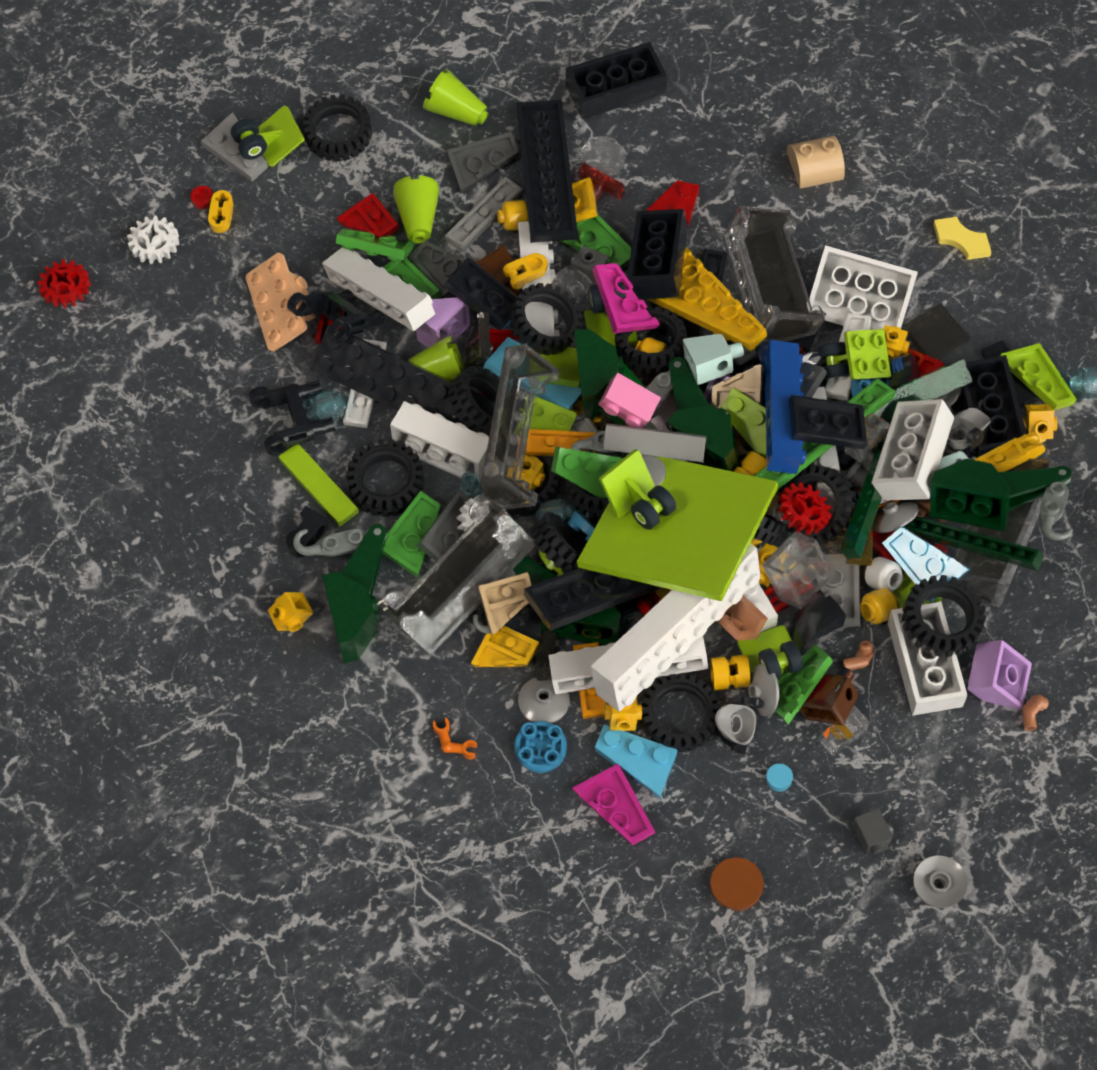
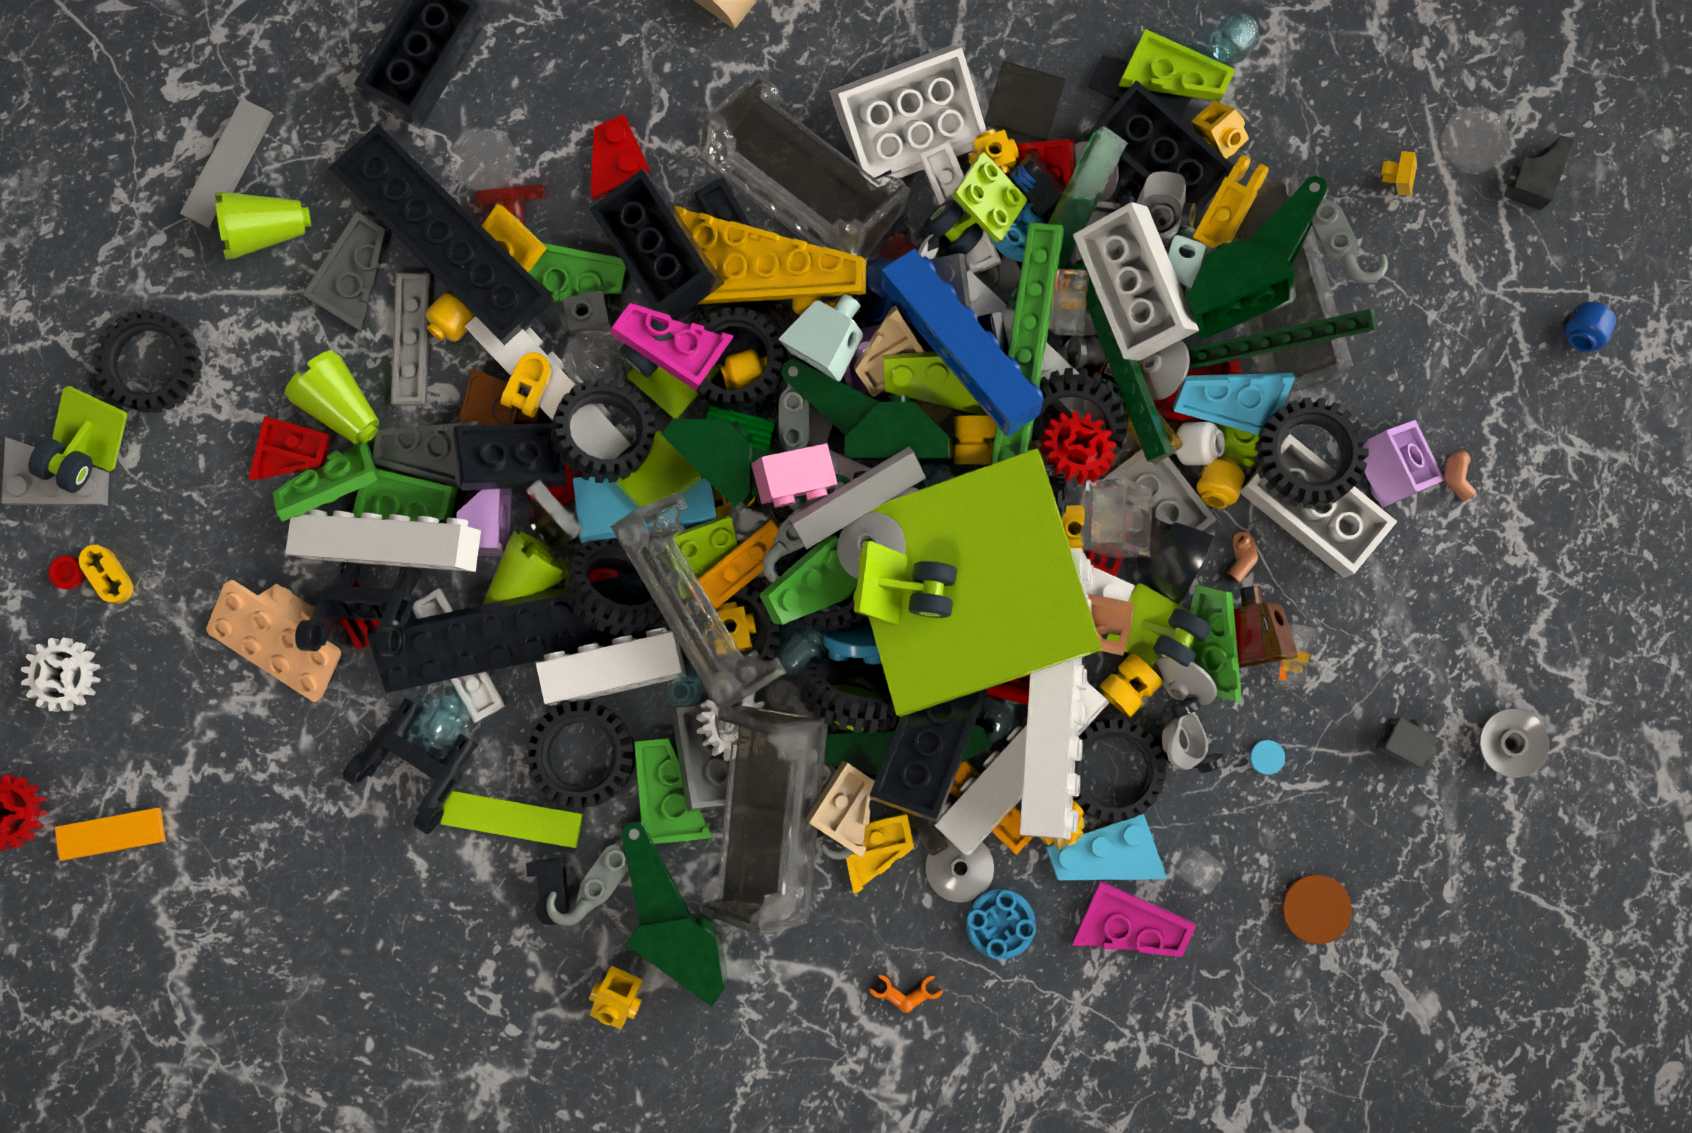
camera: 40 degrees left, 20 degrees up
(104, 334) = (110, 834): none -> light orange tile
(469, 64) = (227, 162): none -> light grey tile
(683, 803) = (1200, 870): none -> clear brick
(827, 422) = (1030, 328): black tile -> none

